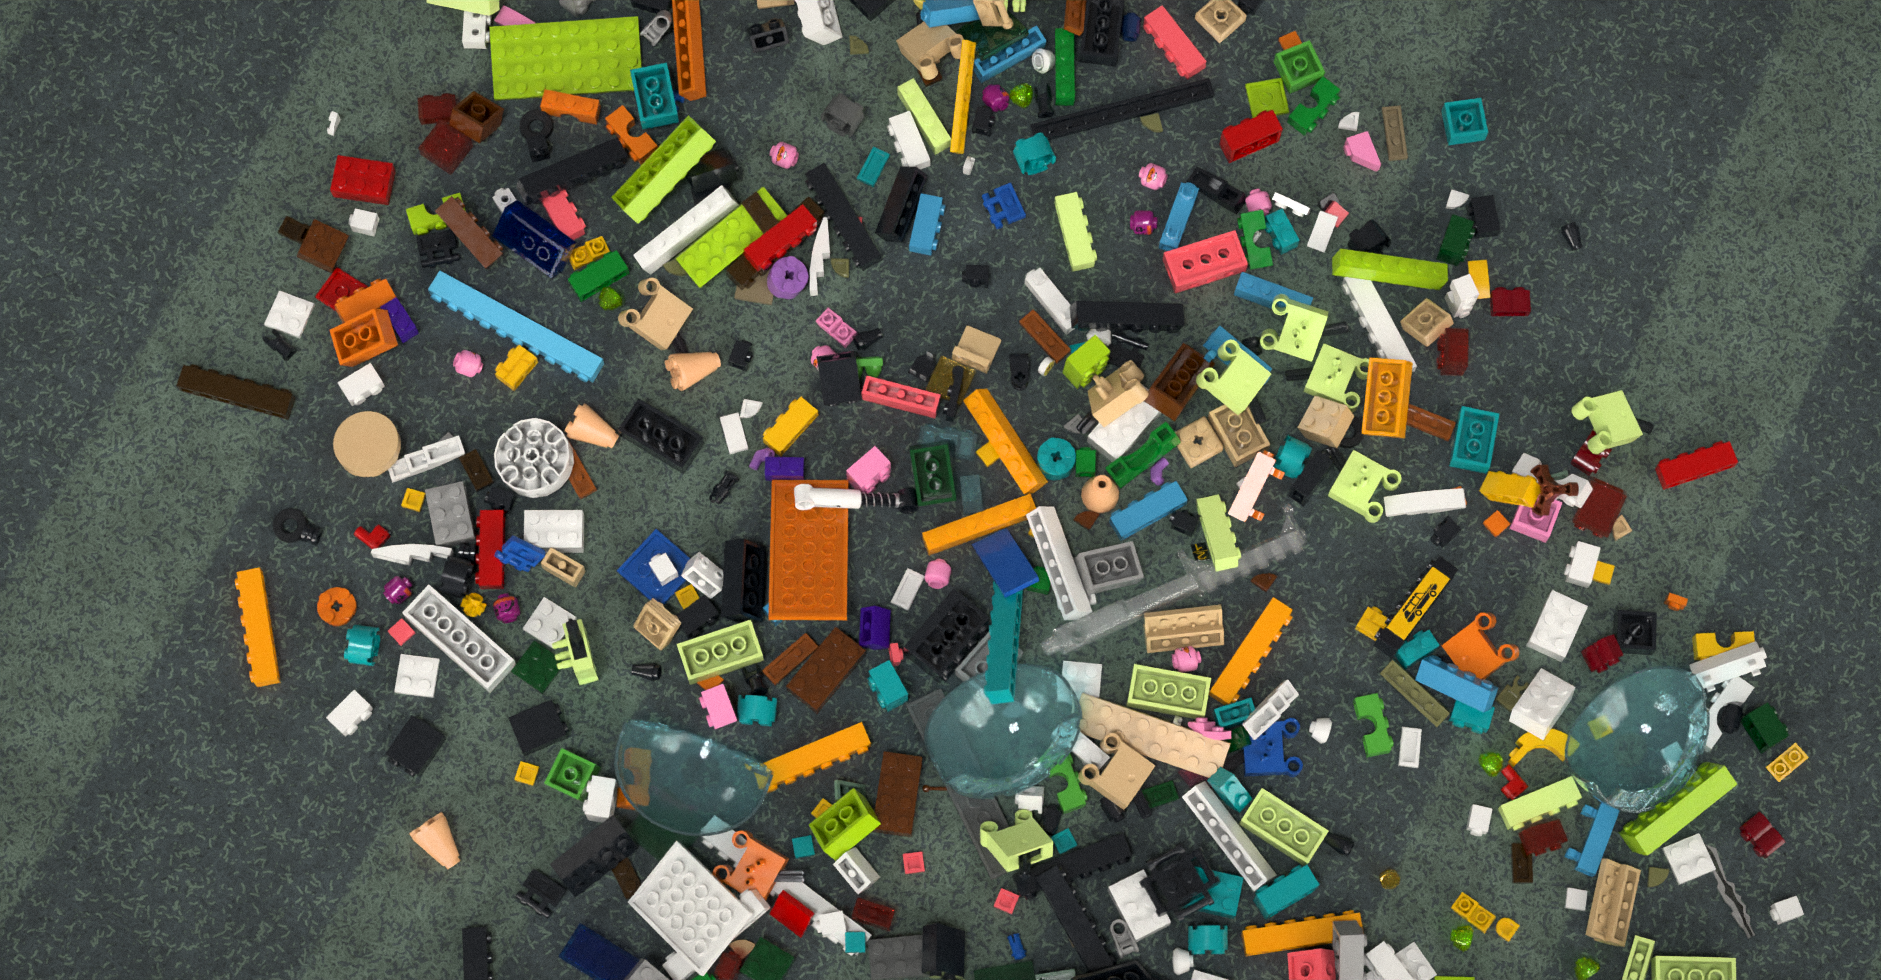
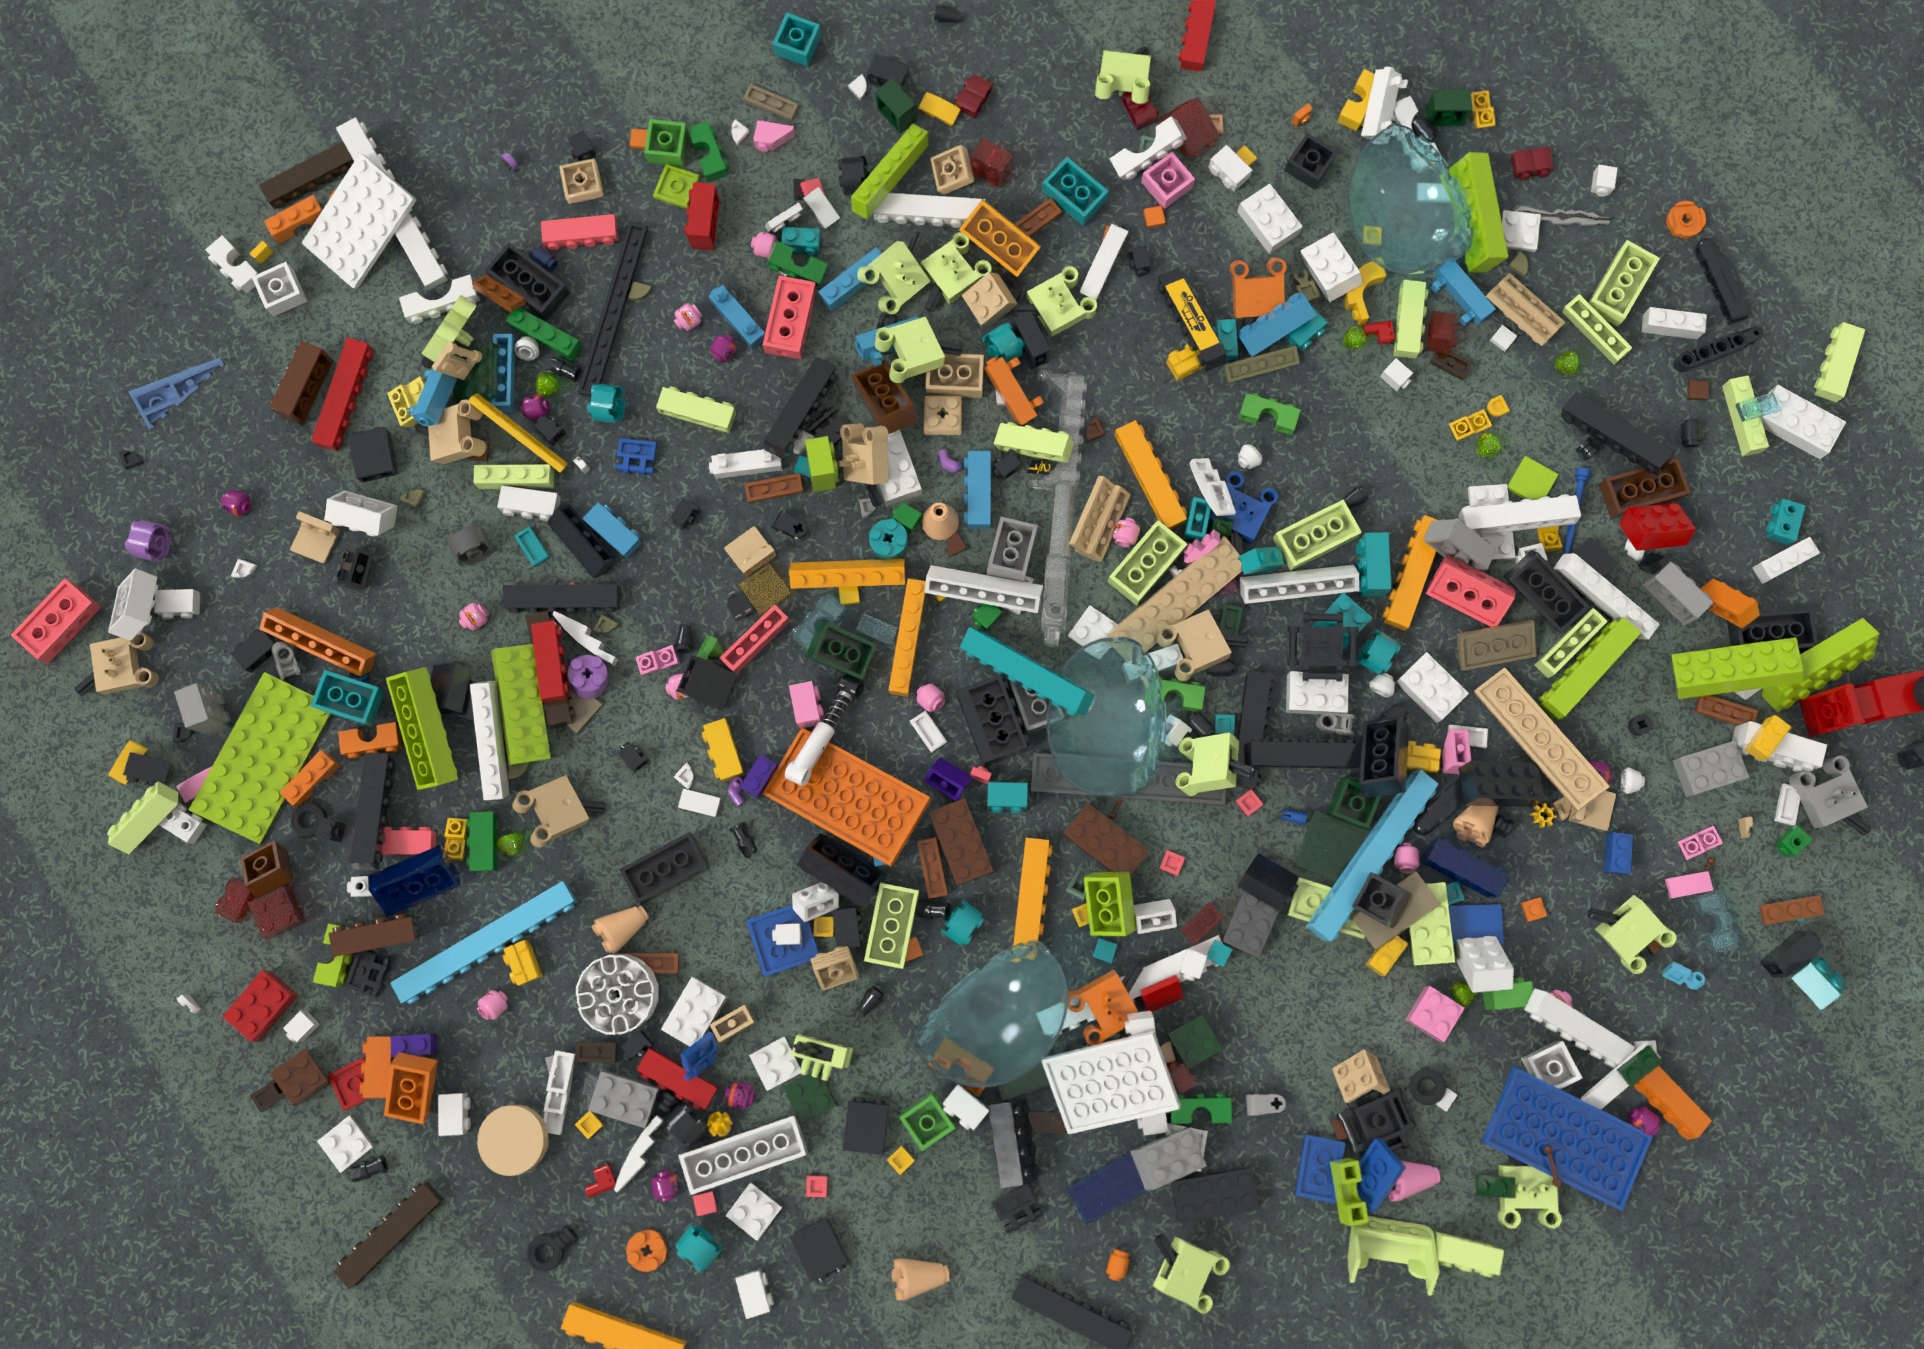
camera: 55 degrees left, 5 degrees up
(466, 715) = (816, 1186): none -> coral tile
(690, 368) = (618, 807): light nougat cone -> none
(718, 707) = (942, 955): bright pink brick -> none
(759, 212) = (515, 665): dark brown plate -> none
(953, 393) = (780, 592): black plate -> none
(1005, 562) = (956, 634): blue tile -> none
(1046, 366) = (801, 503): white tile -> none
(1130, 466) = (928, 450): green arch -> none
(1217, 190) = (732, 271): black slope -> none
(1389, 879) = (1405, 475): clear yellow tile -> none
(1409, 747) = (1303, 395): white tile -> none
(1462, 296) = (949, 126): white arch -> none
(1510, 488) = (1136, 184): yellow brick -> none
(1550, 489) = (1160, 150): copper piece -> none
(1602, 653) = (1315, 196): dark red brick -> none

